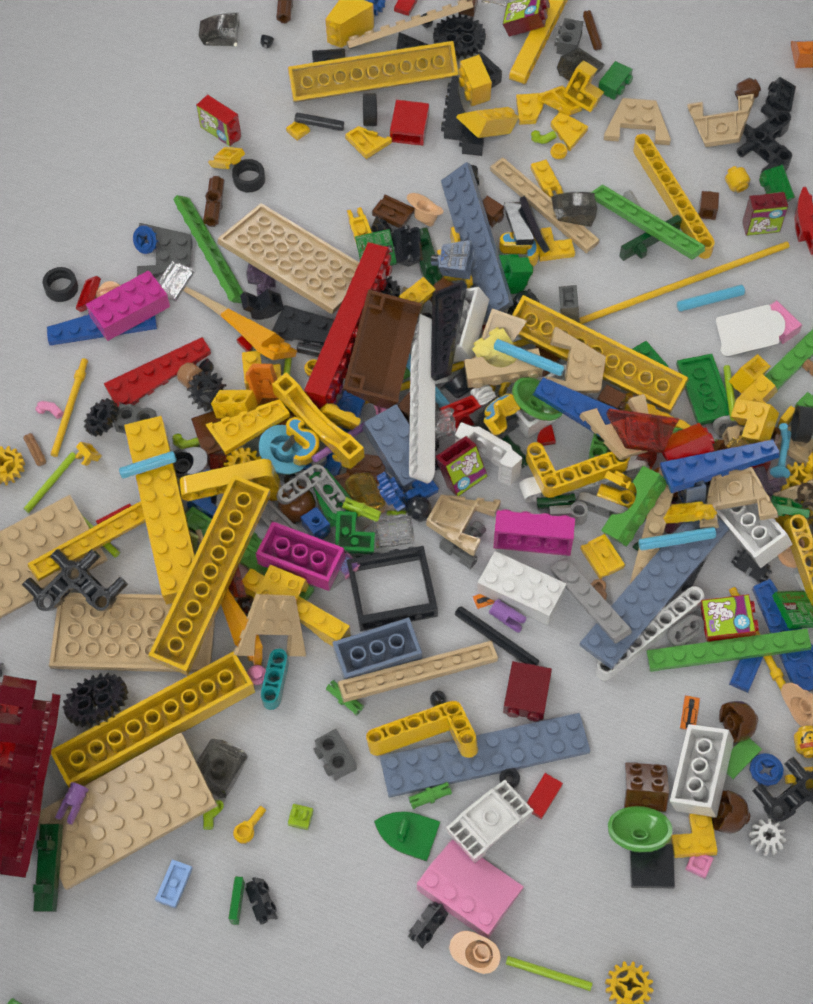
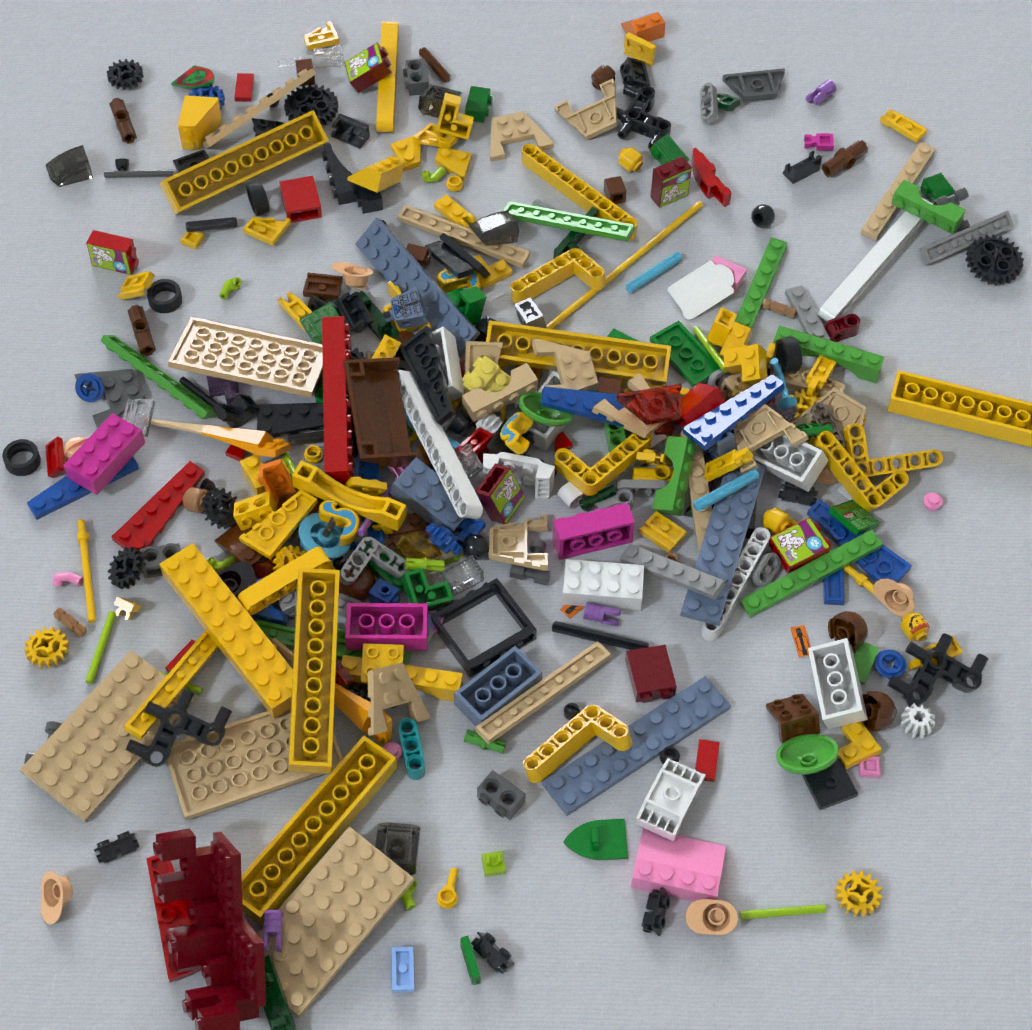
camera: 25 degrees left, 5 degrees down
(108, 697) = (260, 819): black gear -> none
(147, 464) = (202, 592): medium azure axle -> none
(238, 274) = (197, 391): none -> black bar
(277, 53) = (138, 173): none -> dark grey bar
(310, 184) = (229, 286): none -> lime arm
(430, 795) = (604, 798): bright green pin -> none
(475, 80) = (348, 141): yellow brick -> none
(528, 357) = (522, 373): medium azure axle -> none
(615, 267) = (556, 271): none -> yellow beam
(717, 585) = (776, 520): none -> yellow head
(796, 72) = (639, 49): none -> yellow plate

